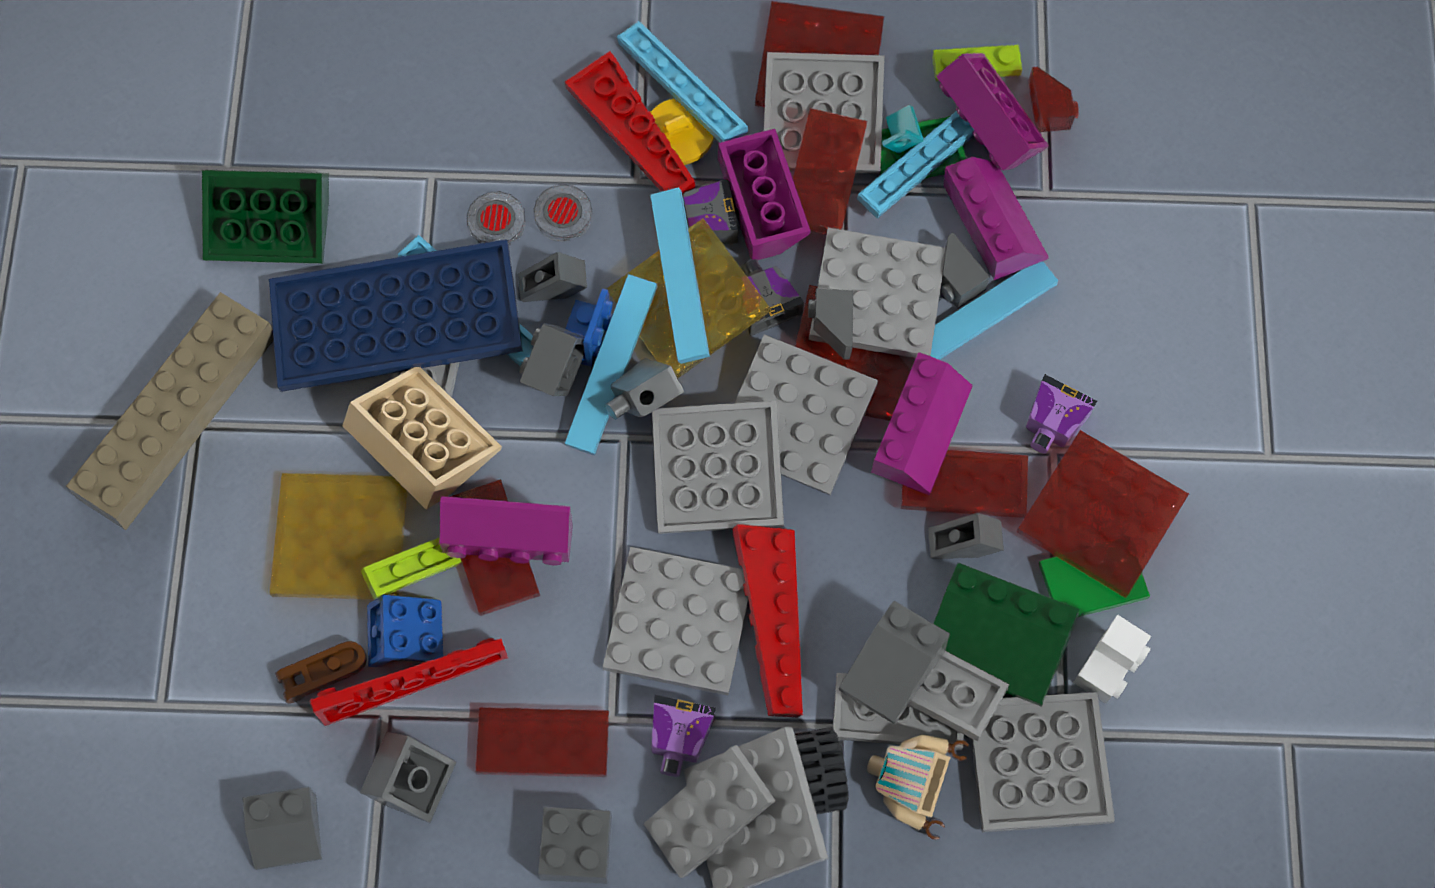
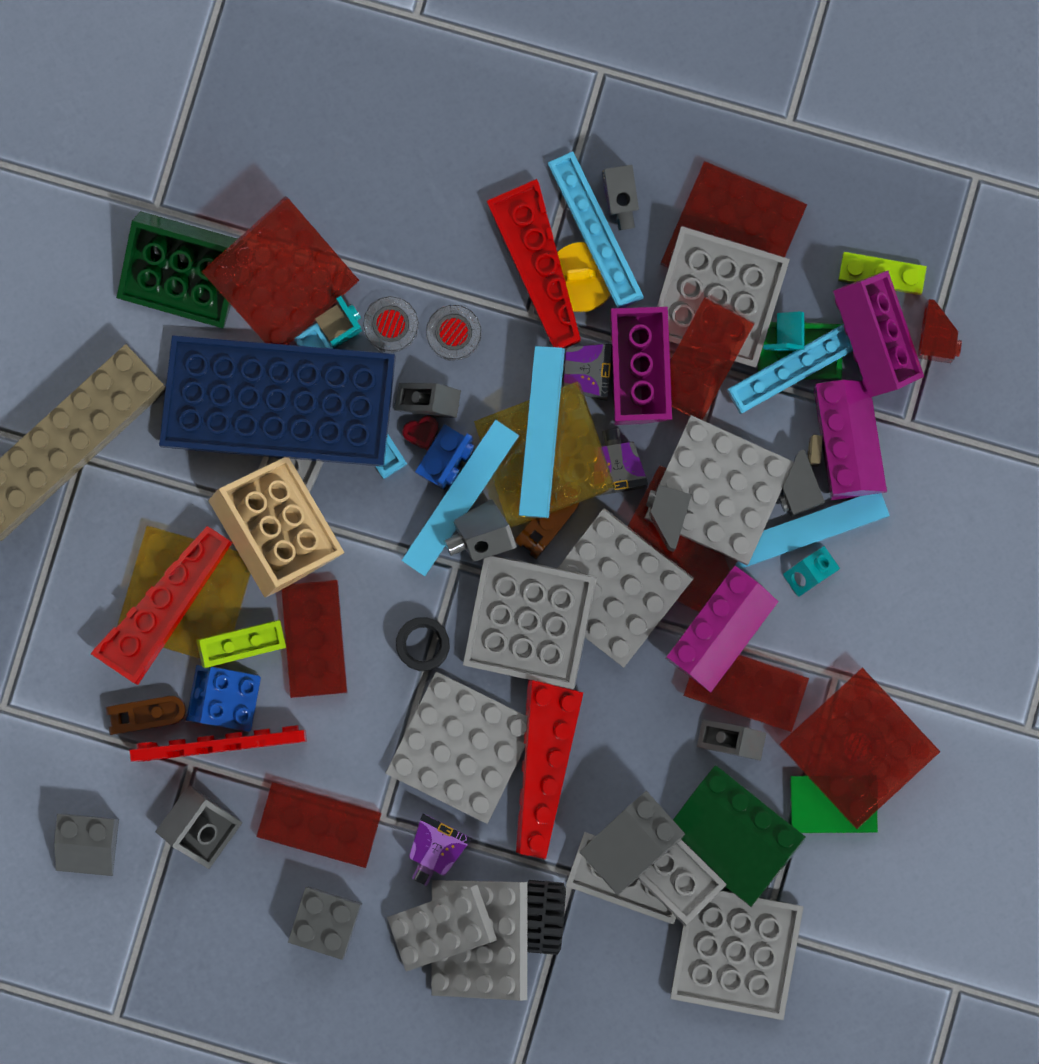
camera: 20 degrees right, 15 degrees up
(304, 573) = (148, 626): none -> red wing
(369, 190) = (280, 274): none -> clear red plate
(437, 231) = (333, 322): none -> dark tan tile
(455, 220) = (353, 317): none -> teal bracket
(505, 530) = (328, 637): magenta slope -> none
(553, 360) = (408, 486): dark grey brick -> none
(554, 313) = (421, 432): none -> dark red tile
(602, 499) = (422, 622): none -> black tyre
(697, 41) = (621, 181): none -> dark grey torso
(709, 374) = (546, 528): none -> reddish brown plate
(913, 778) = (622, 941): tan torso -> none
(963, 231) = (814, 450): none -> dark tan tile
(1000, 346) = (814, 569): none -> teal bracket
(1057, 414) = (847, 645): torso -> none
(1118, 651) = (822, 883): white brick -> none

